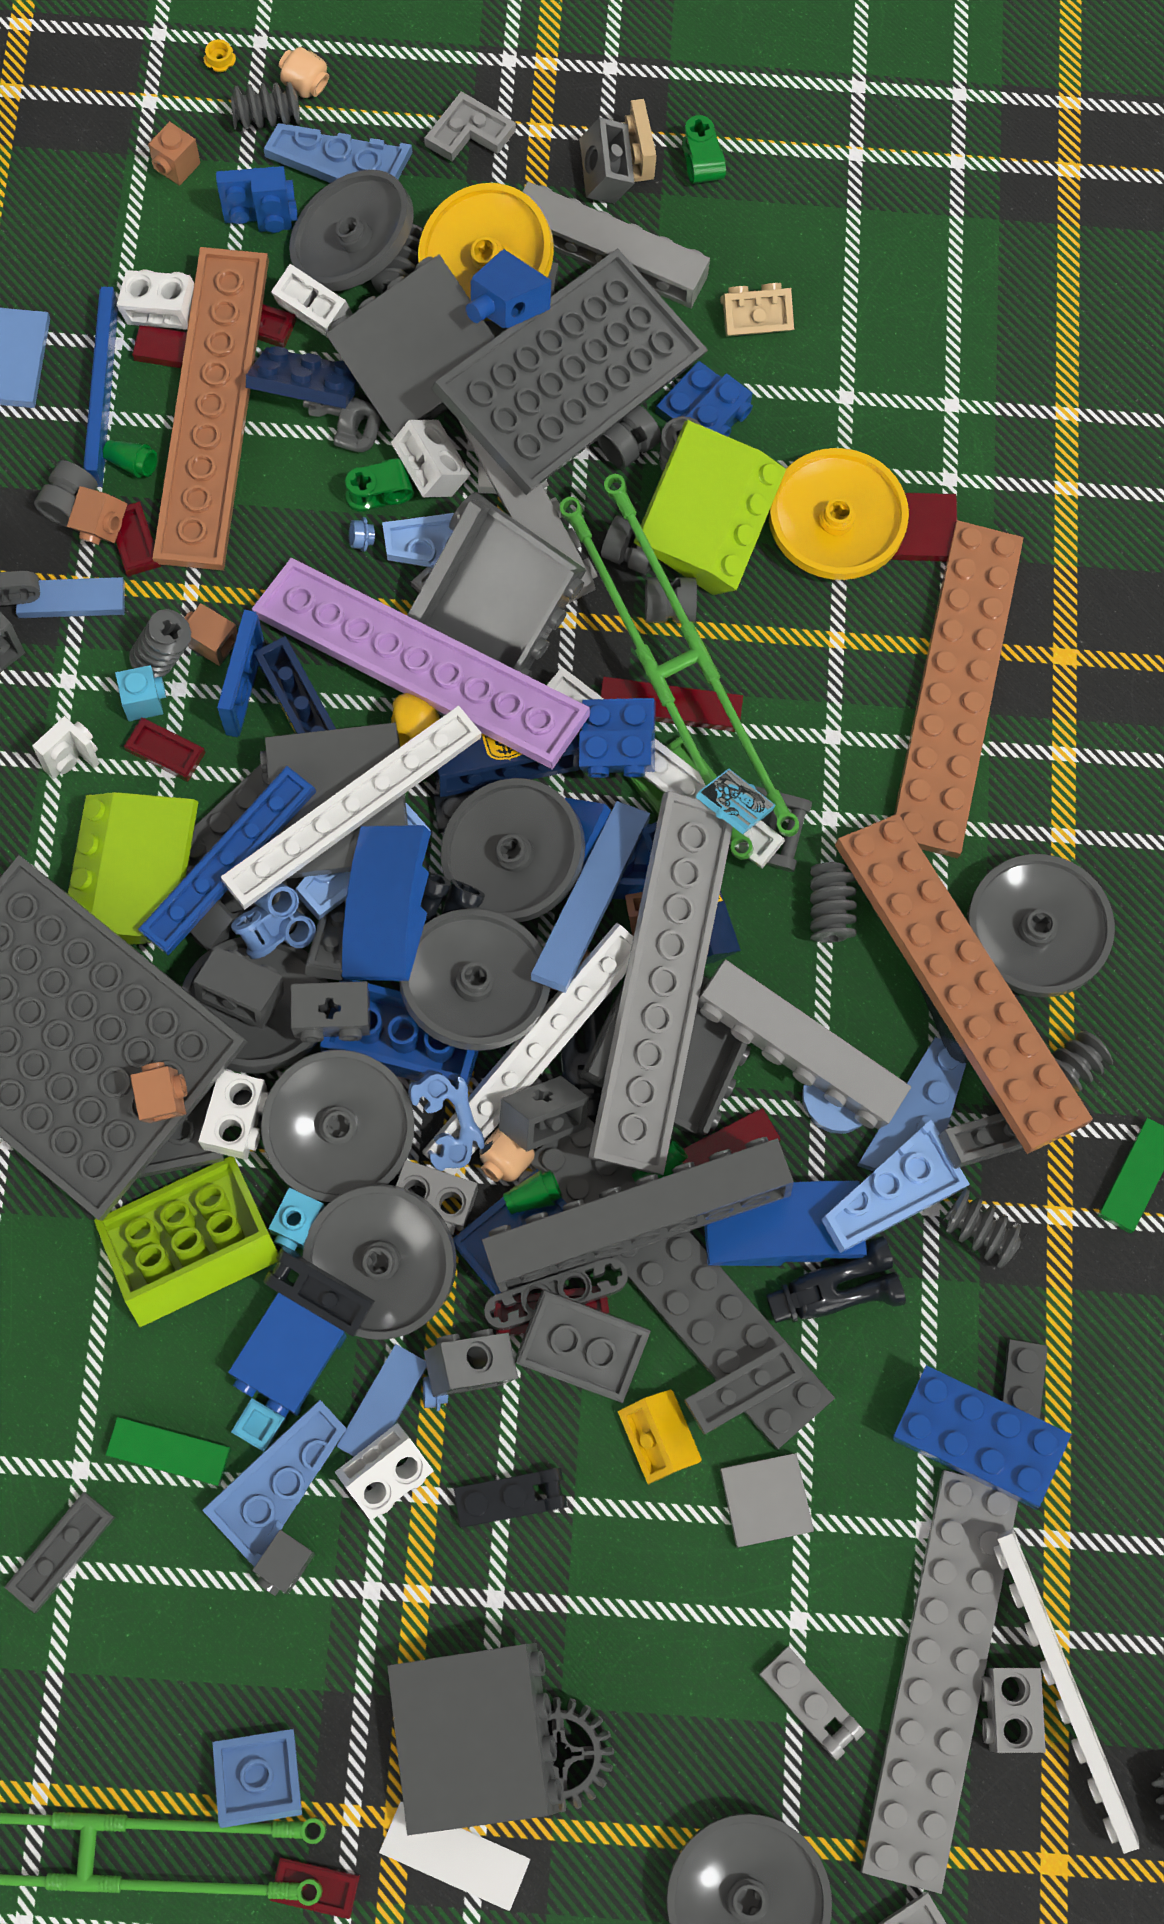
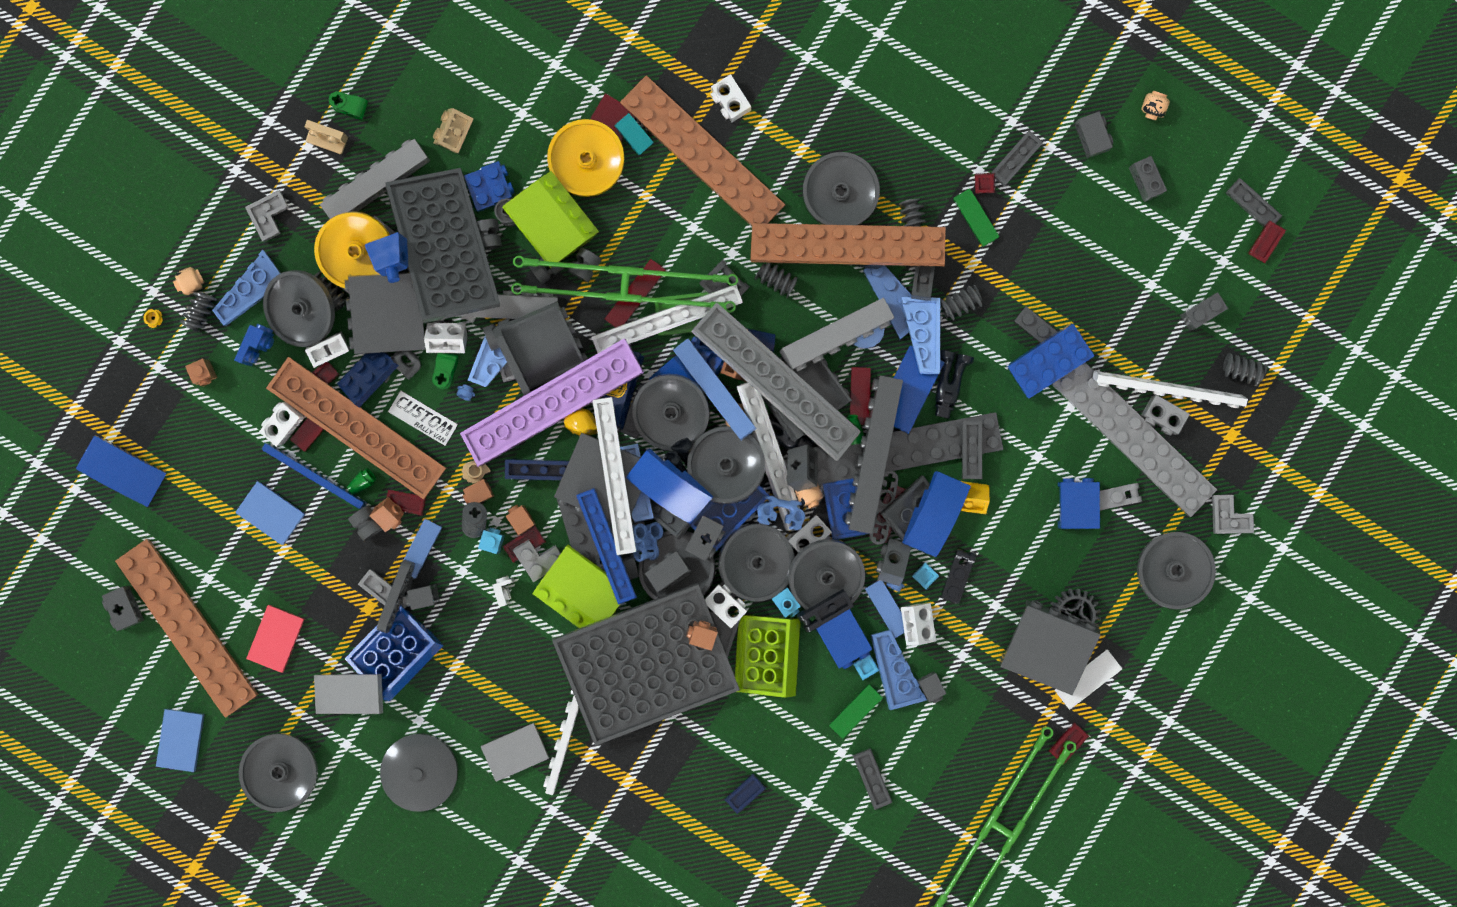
camera: 55 degrees left, 15 degrees up
(145, 768) = (533, 563): none -> light grey plate
(199, 719) = (520, 519): none -> nougat brick
(235, 604) = (473, 473): none -> tan animal
(240, 674) = (510, 489): blue tile -> none
(256, 1778) = (1013, 744): medium blue plate -> none
(284, 498) = (422, 418): none -> white sticker
(478, 1439) = (925, 575): none -> medium azure tile
(533, 1193) = (834, 492): green cone -> none
(596, 1388) = (936, 514): none -> blue slope
(607, 160) = (328, 157): dark grey brick -> none
(618, 737) = (643, 331): blue plate -> none
(735, 801) = (711, 299): piece -> none
(762, 1643) = (1079, 504): none -> blue panel
(766, 1500) = (1021, 467): light grey tile -> none
(921, 566) = (633, 134): none -> teal tile
(1074, 680) = (734, 97): none -> white brick

